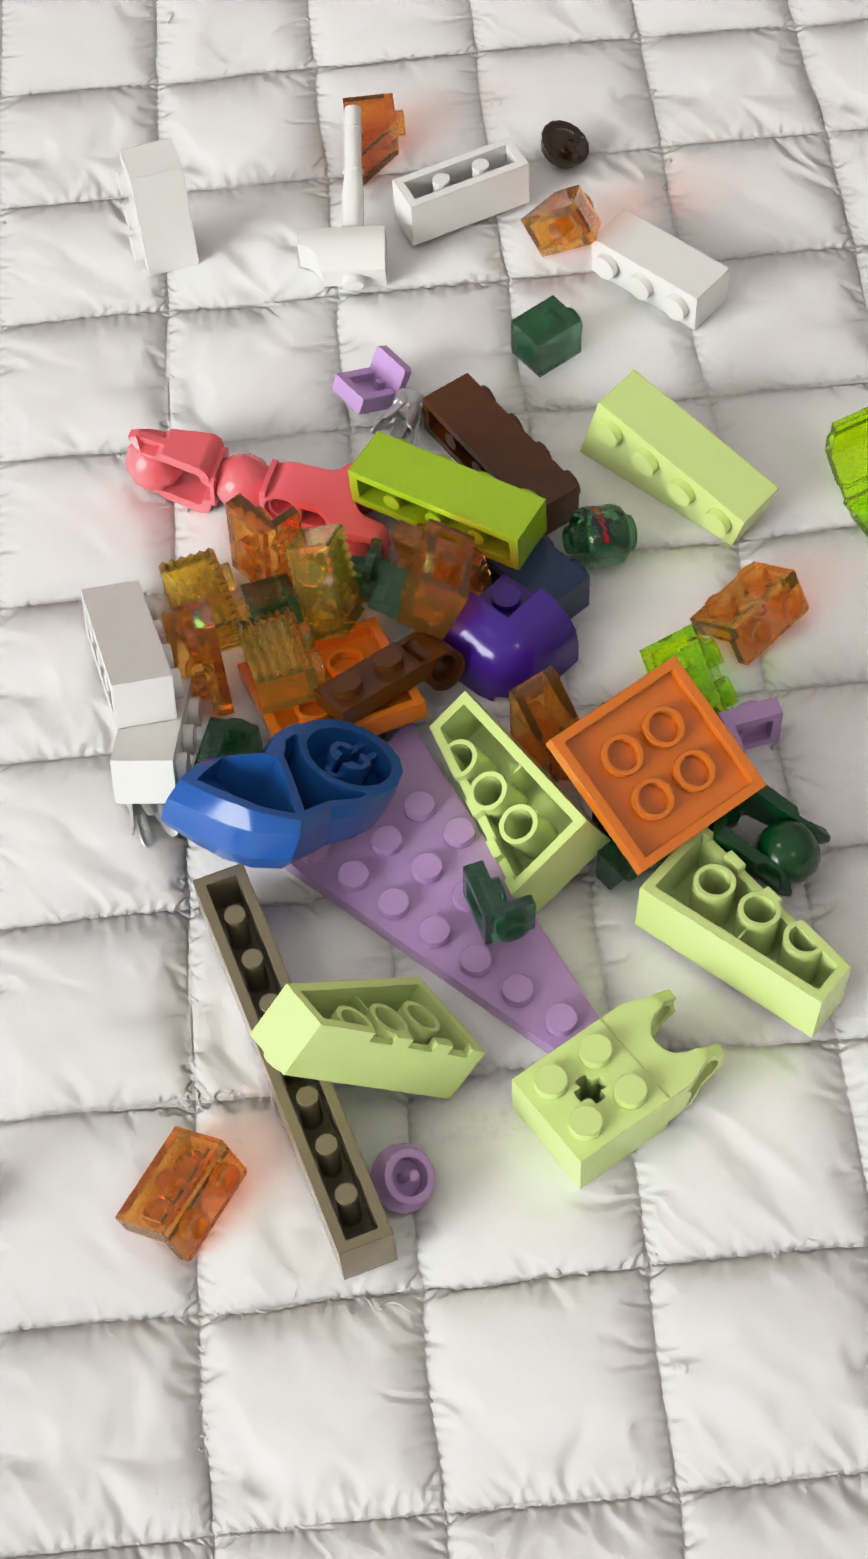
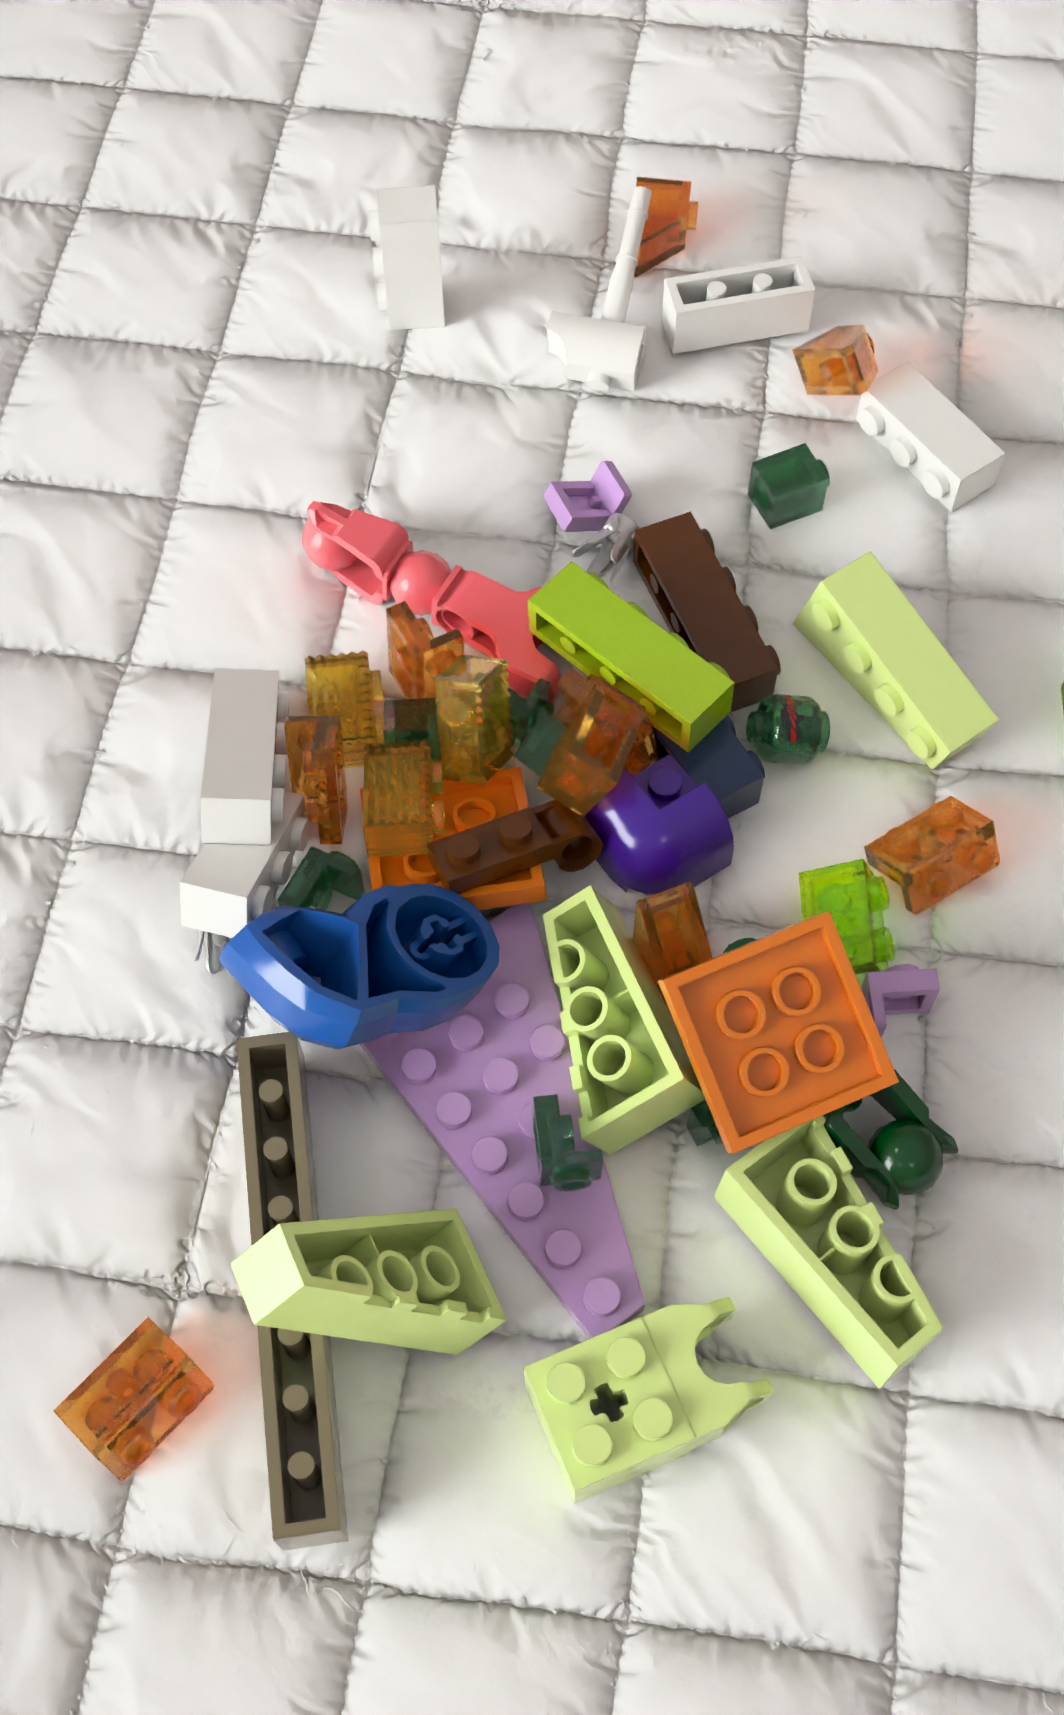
camera: 10 degrees right, 5 degrees up
(403, 1178) = (378, 1444): lavender hat -> none
(564, 144) = (860, 274): dark brown hat -> none

